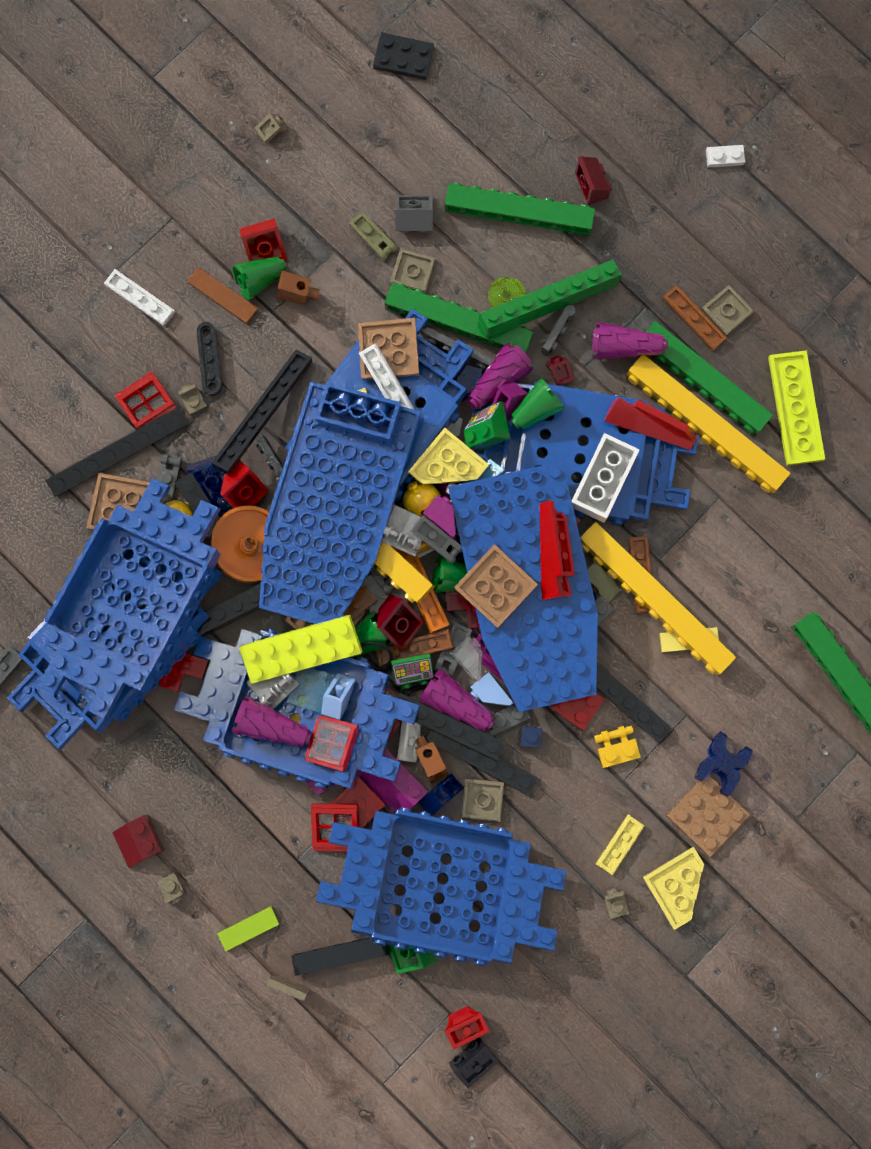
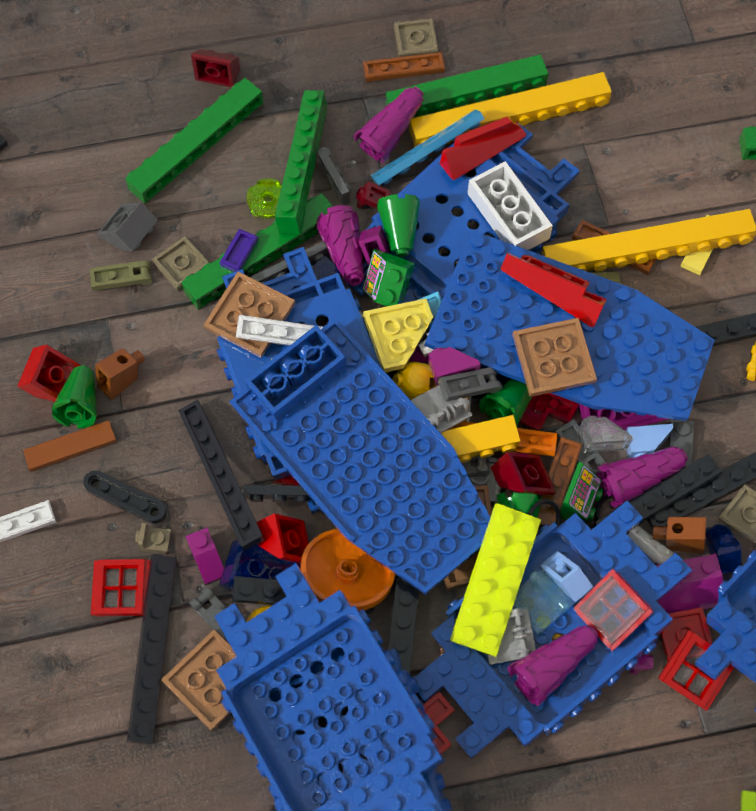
camera: 55 degrees left, 15 degrees down
(202, 442) = (205, 555): none -> magenta slope
(443, 305) = (239, 250): none -> dark purple tile
(530, 737) = (715, 431): dark blue brick -> none
(580, 710) = (715, 377): red plate -> none
(625, 382) = (432, 144): none -> dark azure plate
(796, 408) = (544, 37): neon yellow plate -> none

